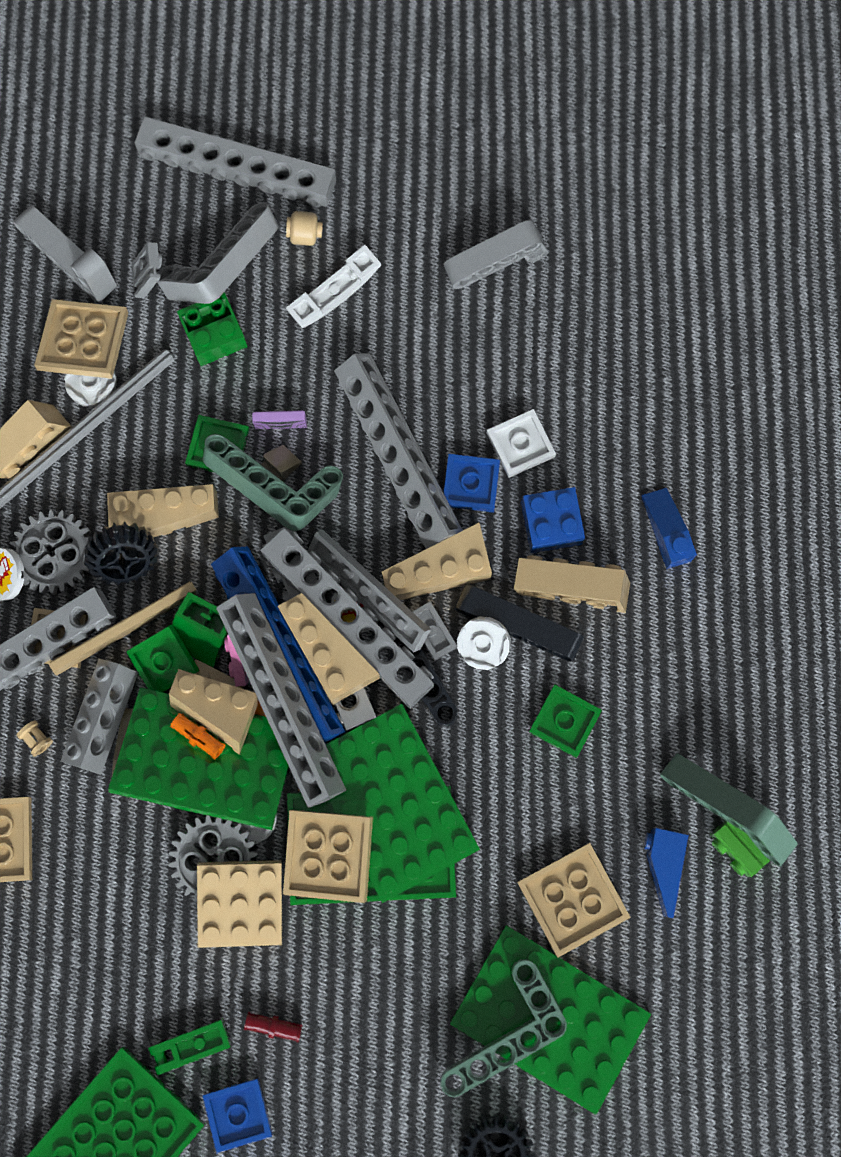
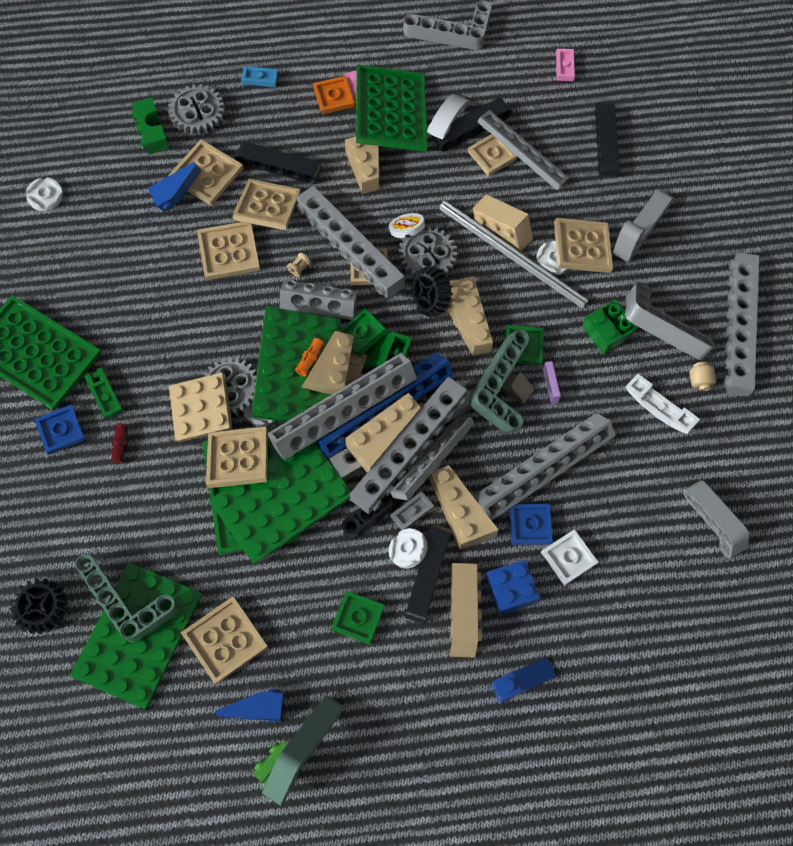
camera: 80 degrees right, 10 degrees down
(121, 629) = (381, 304): tan tile -> none
(145, 268) = (643, 276): light grey plate -> none

